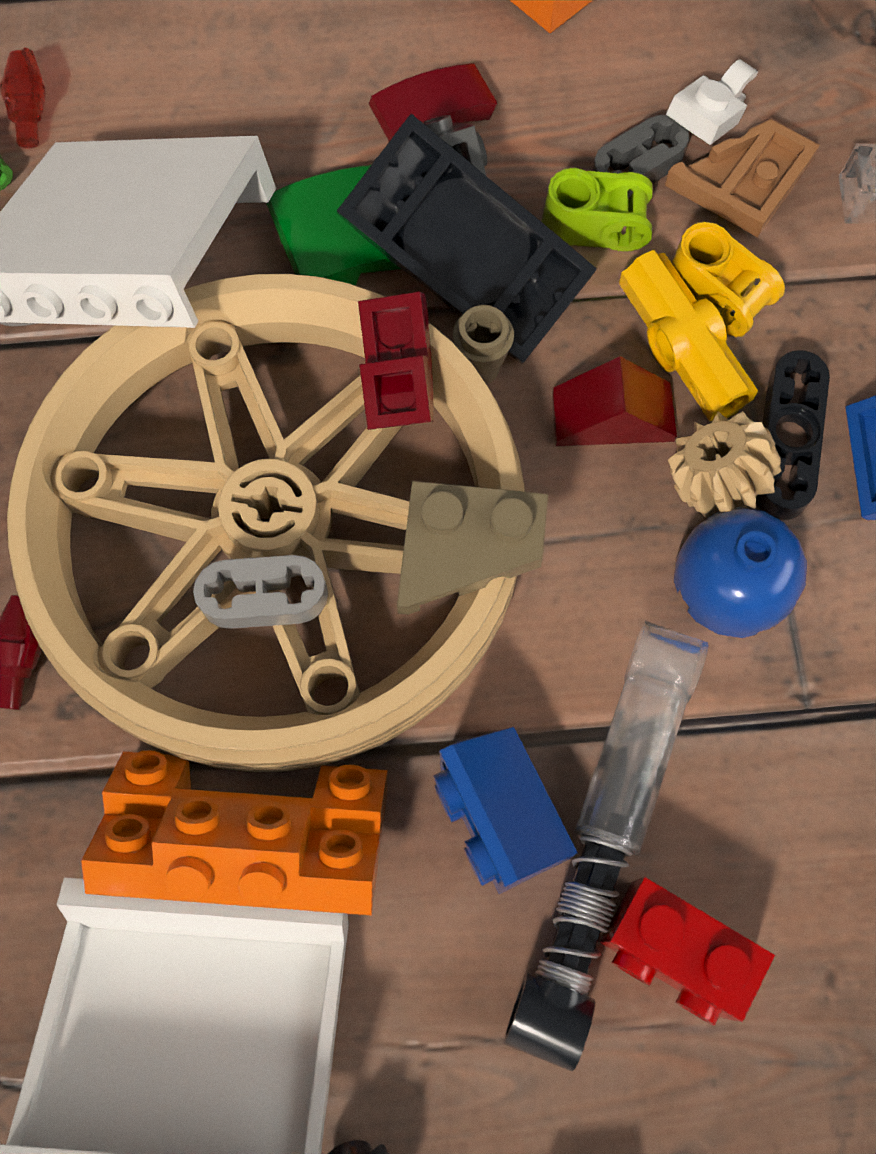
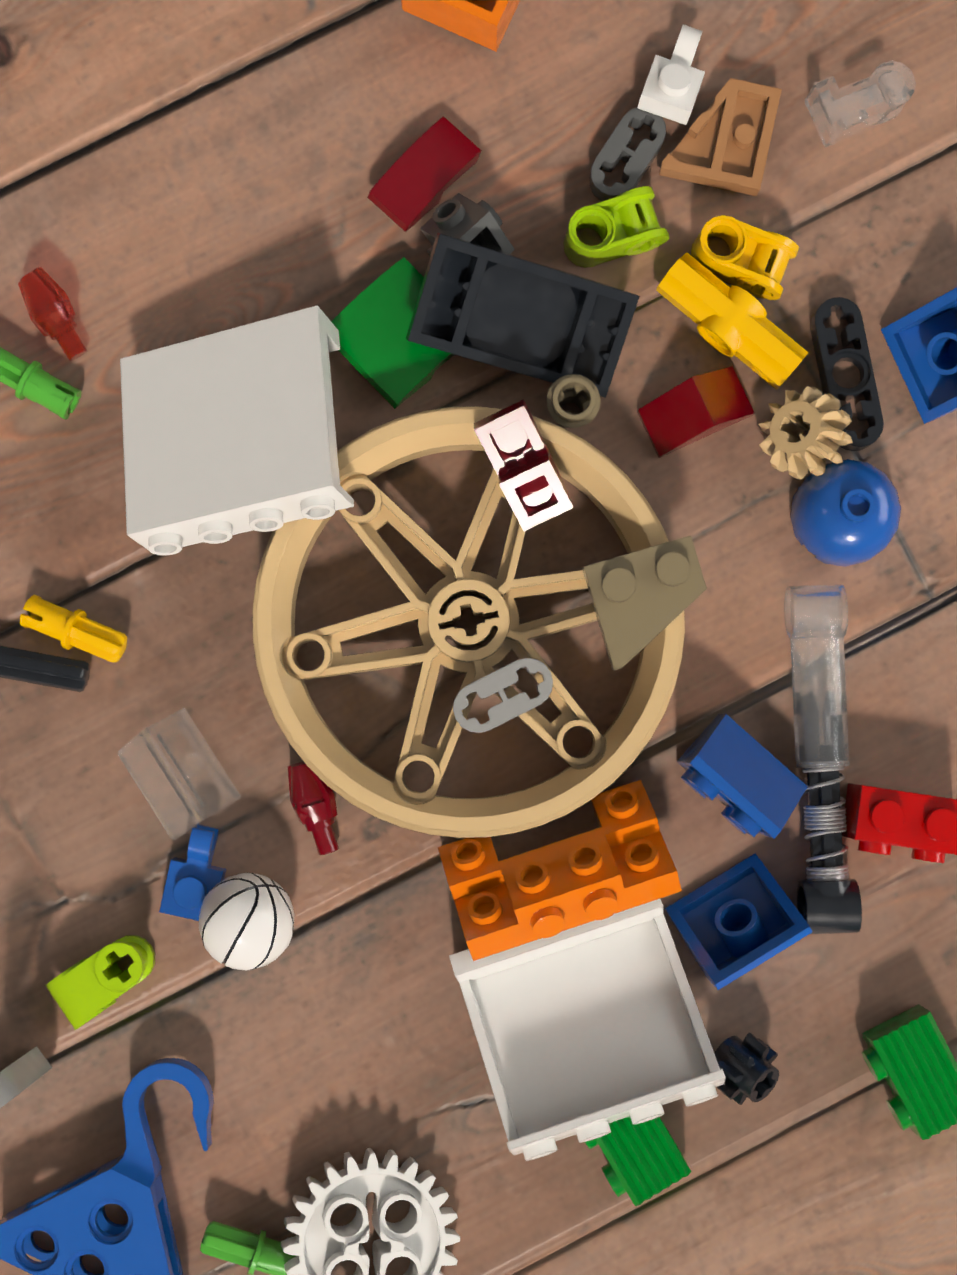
camera: 25 degrees left, 15 degrees up
(427, 990) = (737, 921): none -> blue slope

